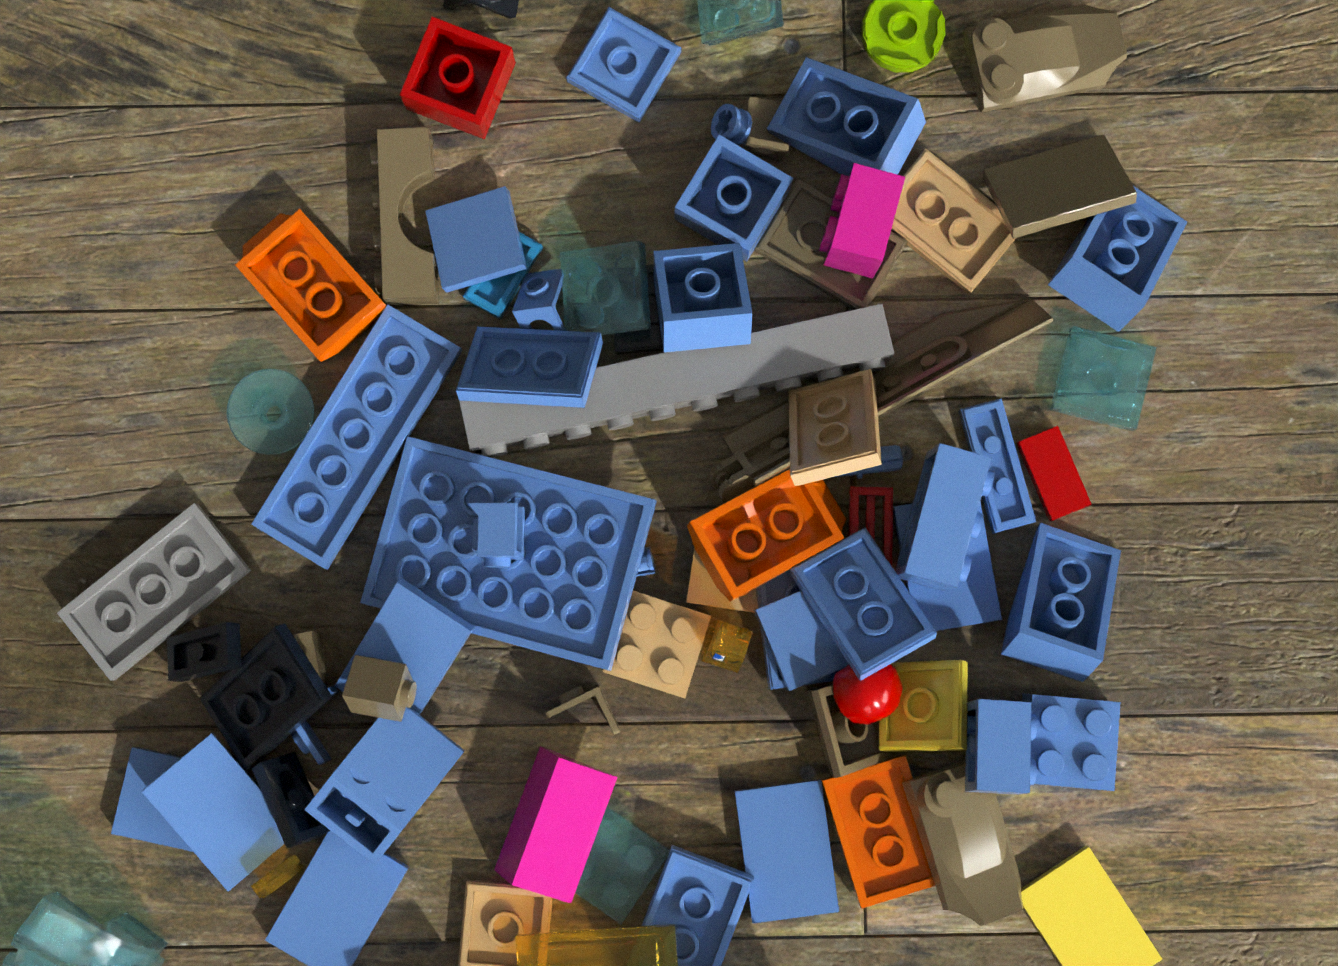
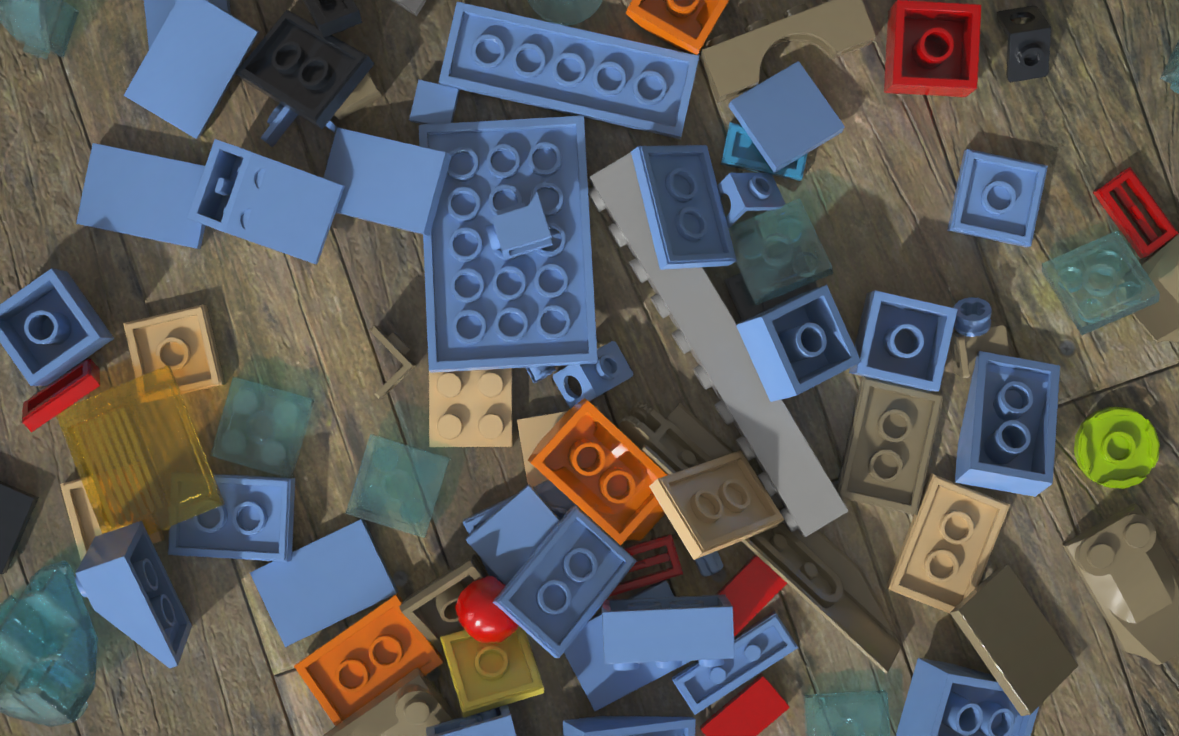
camera: 75 degrees right, 5 degrees up
(277, 877) = (151, 135): clear yellow tile -> none
(287, 796) = (223, 120): black plate -> none
(344, 581) = (434, 103): none -> medium blue tile
(379, 688) = (344, 169): dark tan brick -> none
(555, 825) = (277, 367): dark pink slope -> none
(669, 511) = (595, 378): none -> medium blue bracket
(713, 743) = (398, 485): none -> clear light blue plate
(726, 645) = (489, 469): clear yellow leg -> none
(864, 220) = (920, 469): dark pink brick -> none
(928, 423) = (751, 591): none -> red tile

